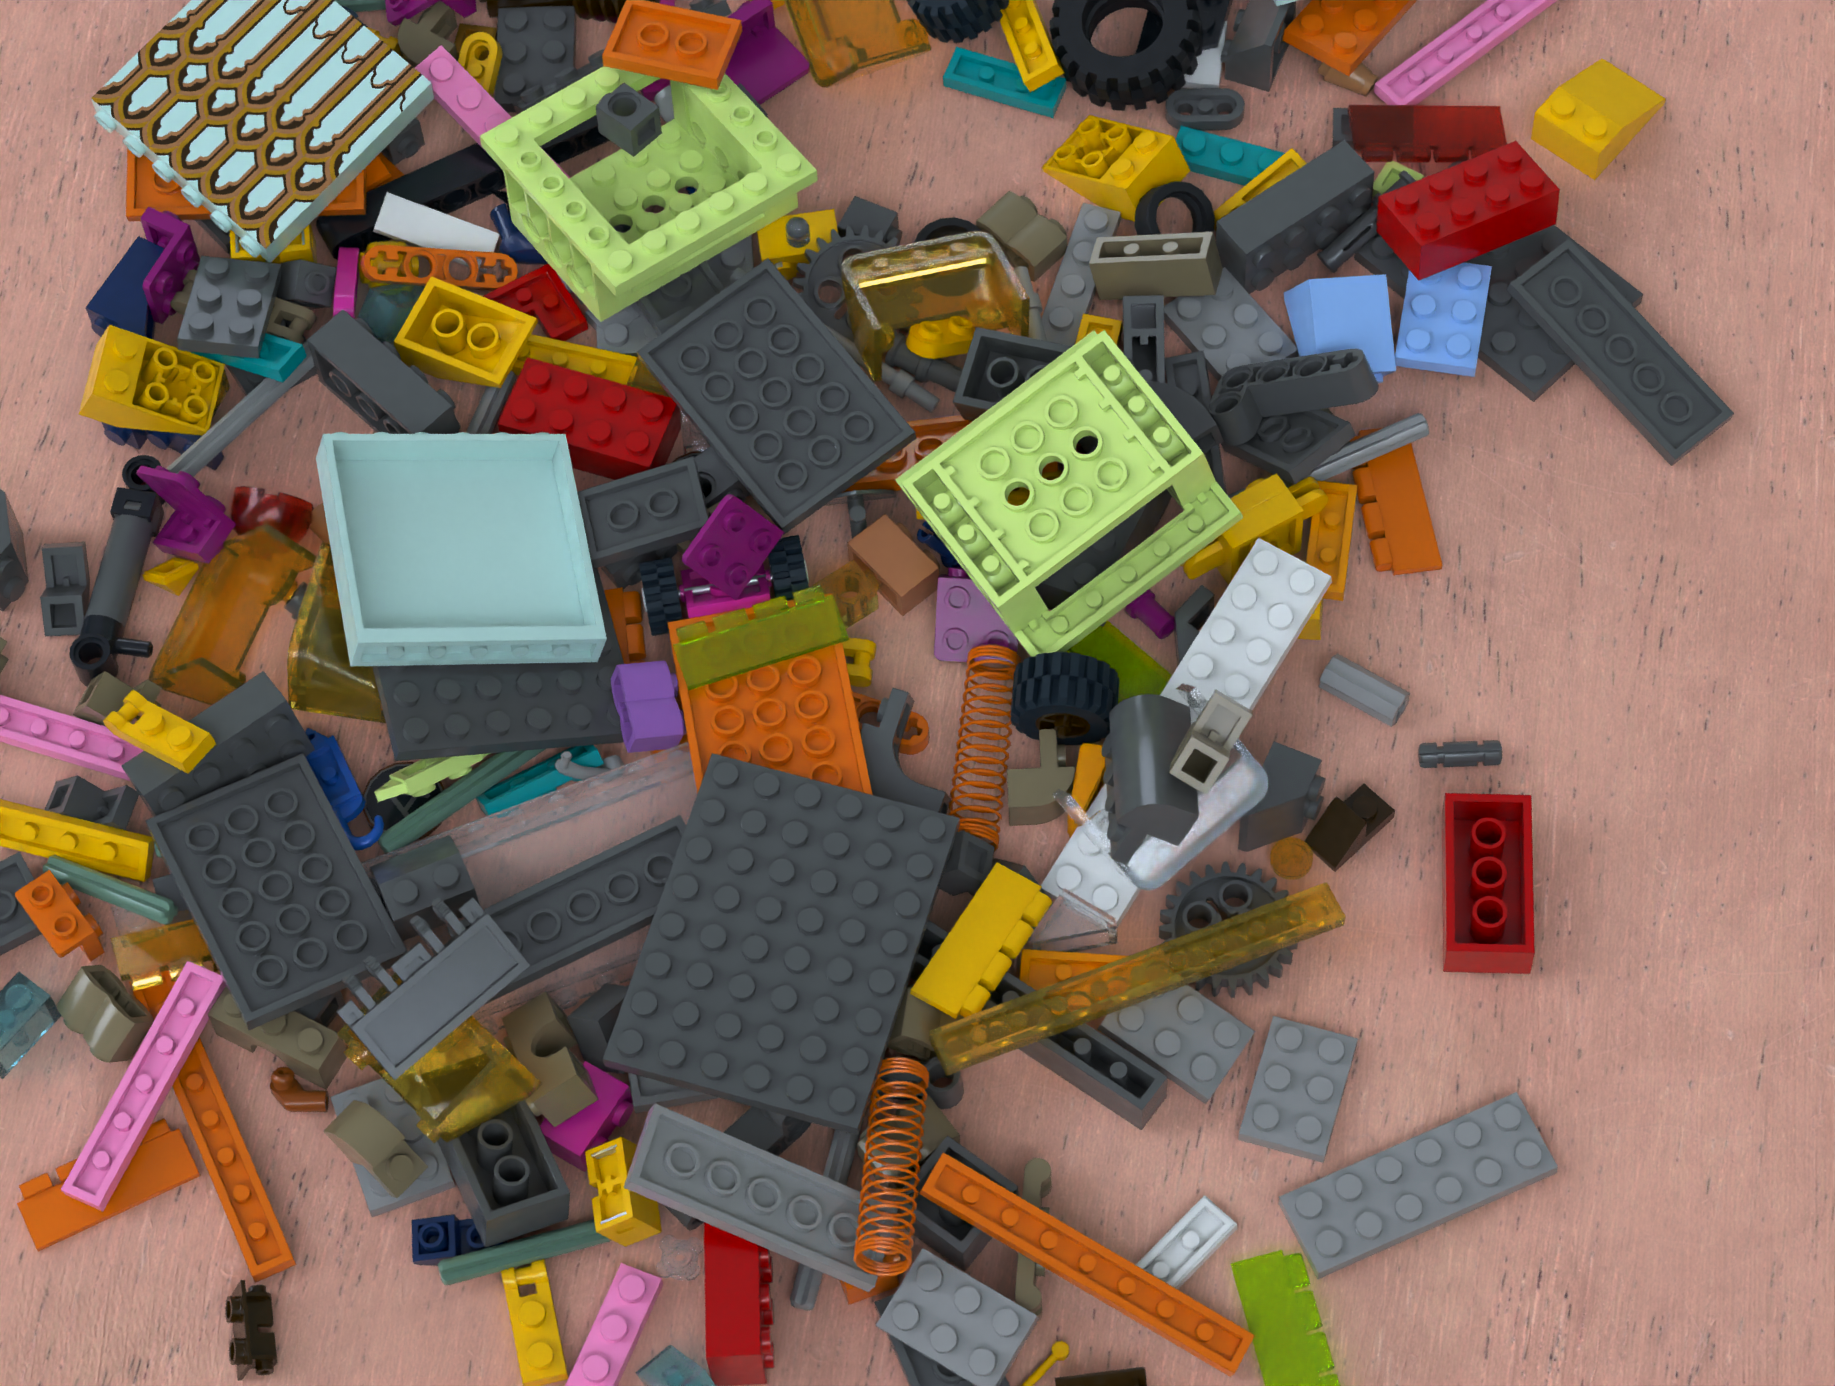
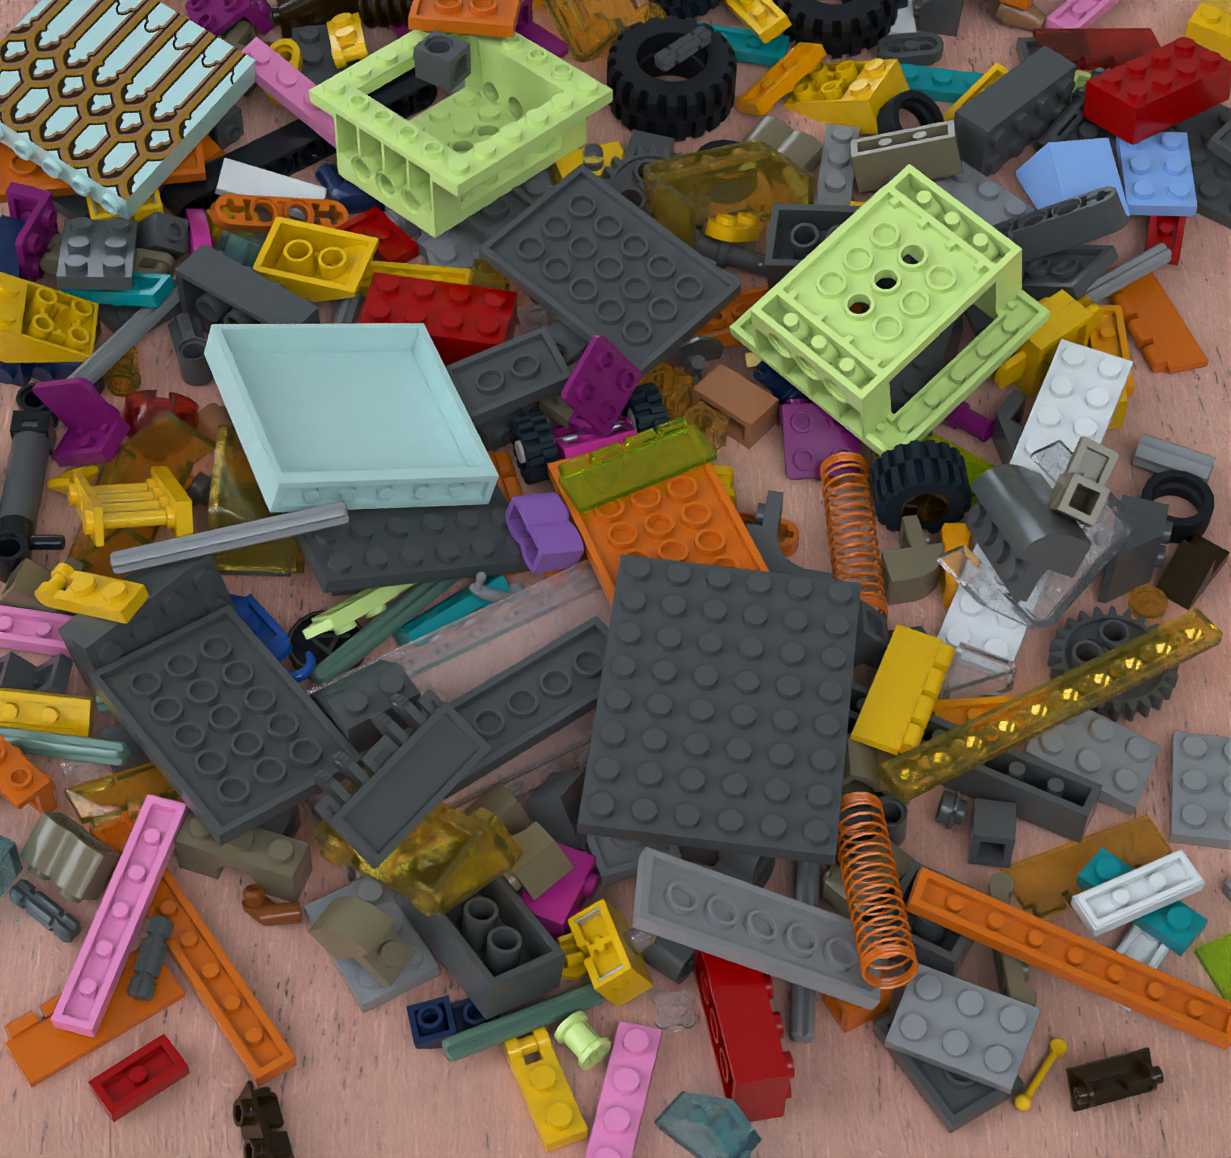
camera: 15 degrees left, 10 degrees down
(75, 1067) = (45, 911): none -> dark grey axle
(140, 1258) = (138, 1077): none -> red plate
(168, 1135) = (150, 958): none -> dark grey axle
(243, 449) = (123, 374): none -> clear yellow cone
(252, 618) = (131, 505): none -> yellow fence
(306, 688) = (229, 538): none -> light grey axle
(317, 417) = (190, 346): none -> dark grey piece
(551, 44) = (347, 39): none -> yellow plate
(580, 1190) = (573, 963): none -> yellow plate
(580, 1279) = (582, 1040): none -> yellowish green bush
(830, 552) = (674, 388): none -> clear yellow brick
(904, 87) = (670, 107): none -> black tyre
(923, 102) = (682, 48): none -> dark grey axle
(1013, 1075) = (951, 809): none -> dark grey plate
(1041, 138) = (780, 79): none -> light orange plate
(1047, 1109) = (992, 833): none -> dark grey brick
(1132, 1154) = (1050, 875): none -> clear yellow windscreen
(1173, 1201) = (1137, 893): none -> white tile
(1182, 1207) = (1171, 925): none -> teal plate
(1351, 718) = (1187, 487): none -> black tyre
(1435, 398) = (1167, 231): none -> red plate

